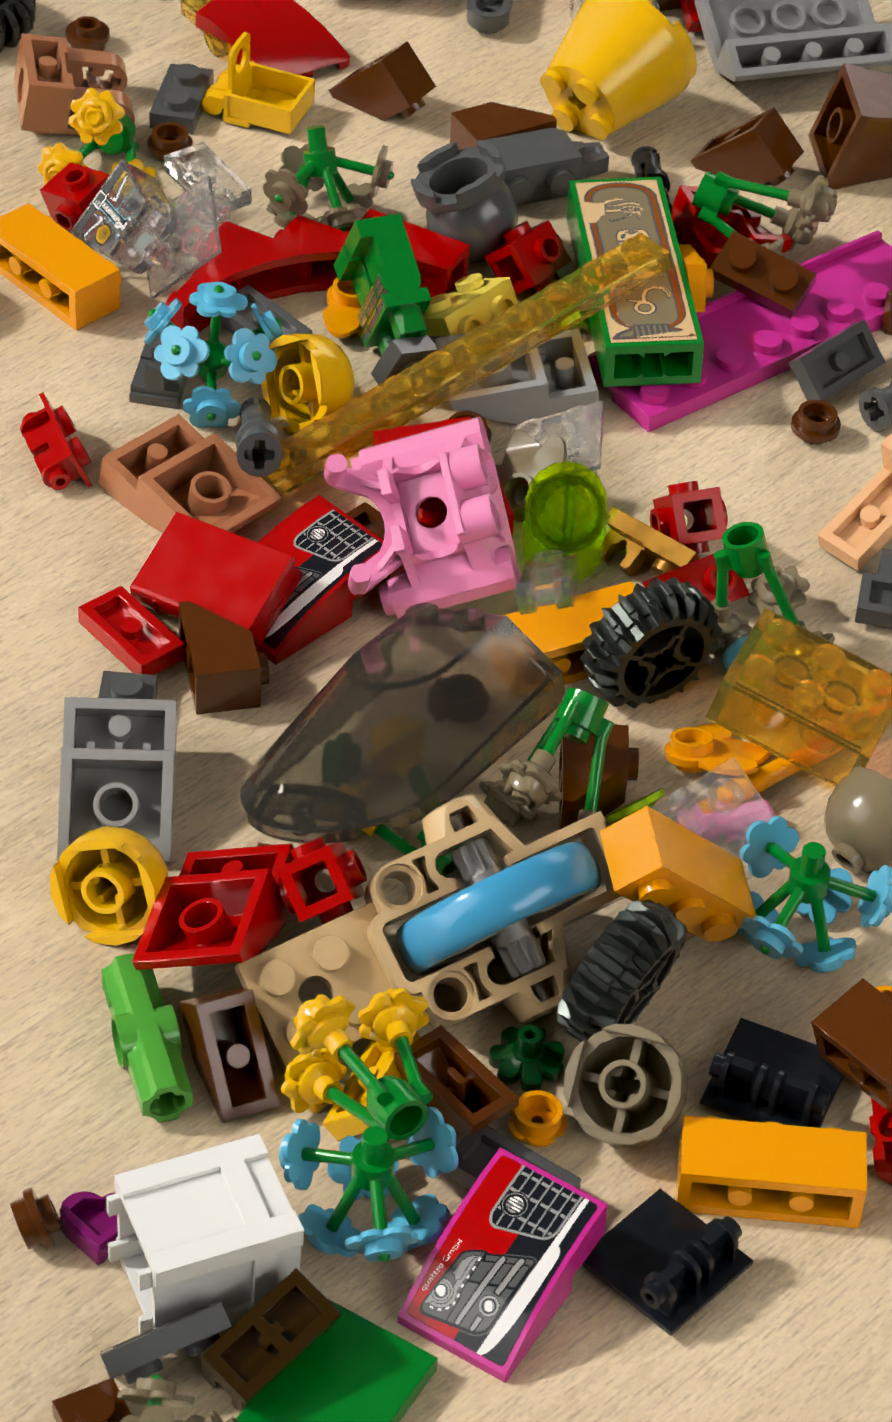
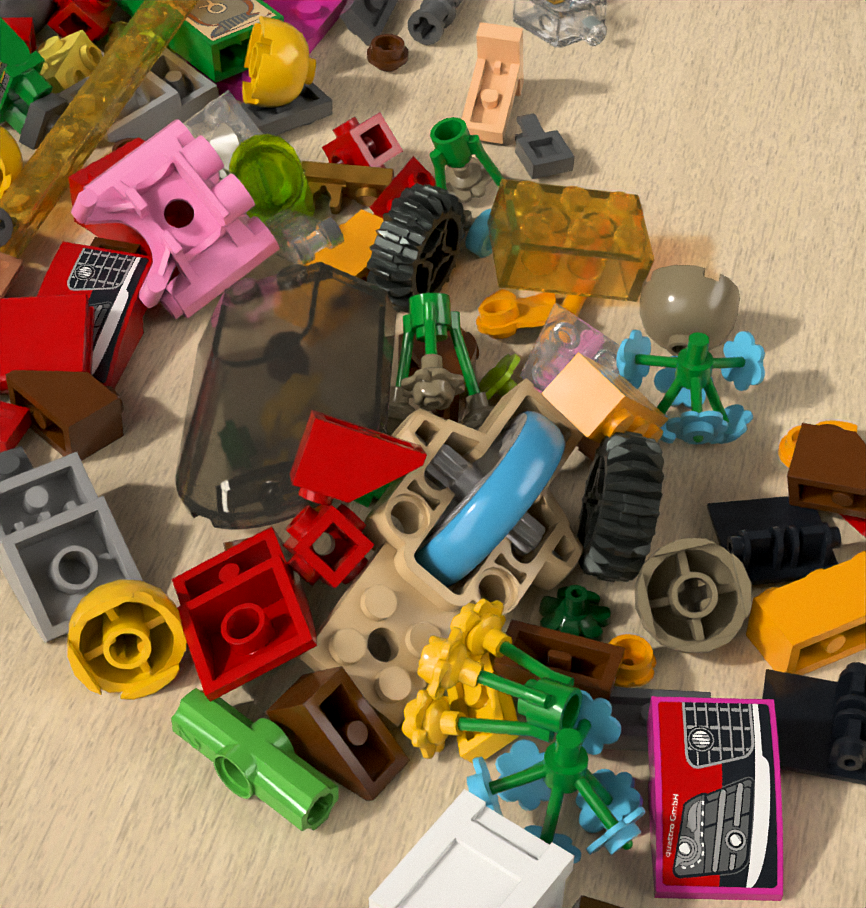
camera: 30 degrees left, 0 degrees up
(368, 808) = (349, 460): none -> red slope
(655, 443) = (304, 110): none -> dark grey plate
(663, 394) = (276, 64): none -> yellow cylinder

